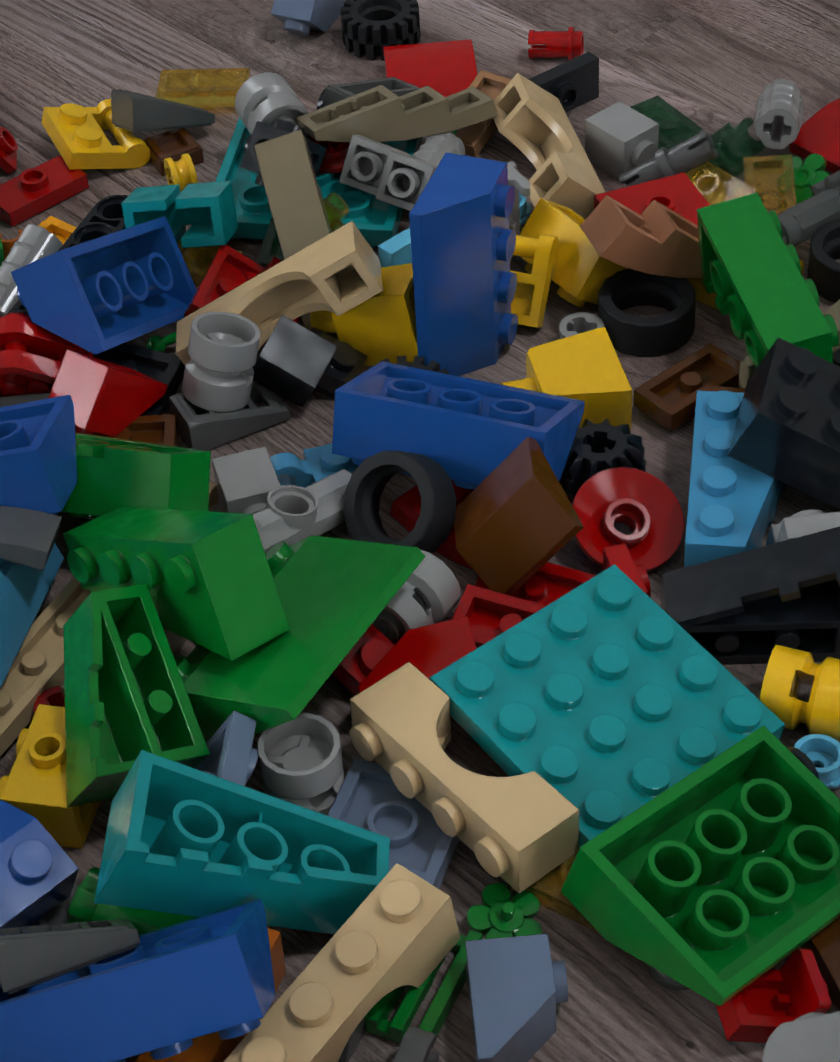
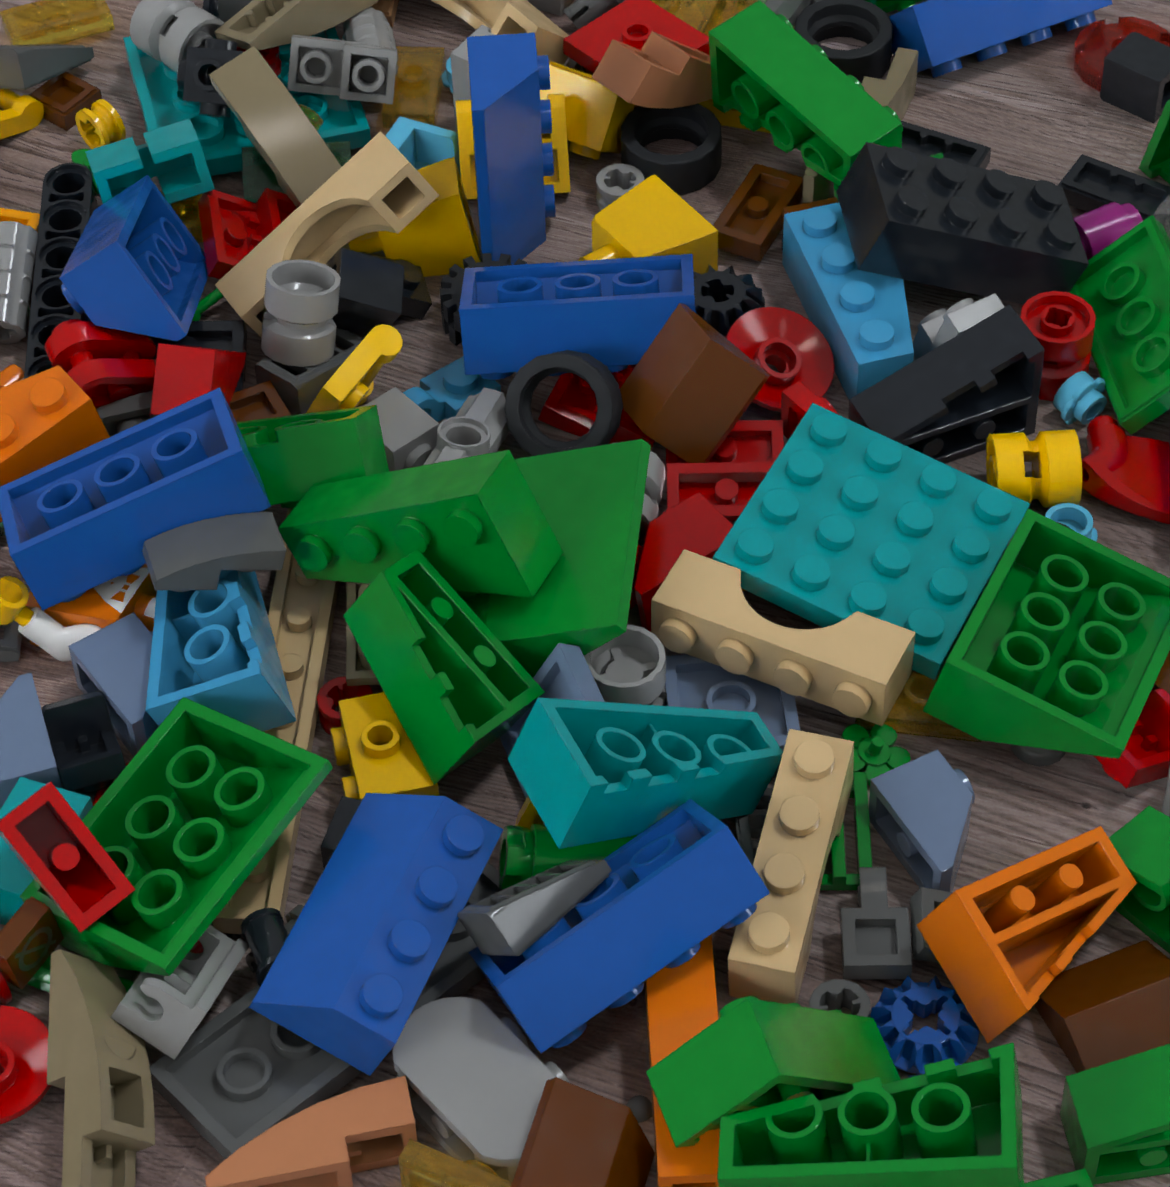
camera: 25 degrees left, 5 degrees up
(218, 427) = (354, 378): none -> yellow plate

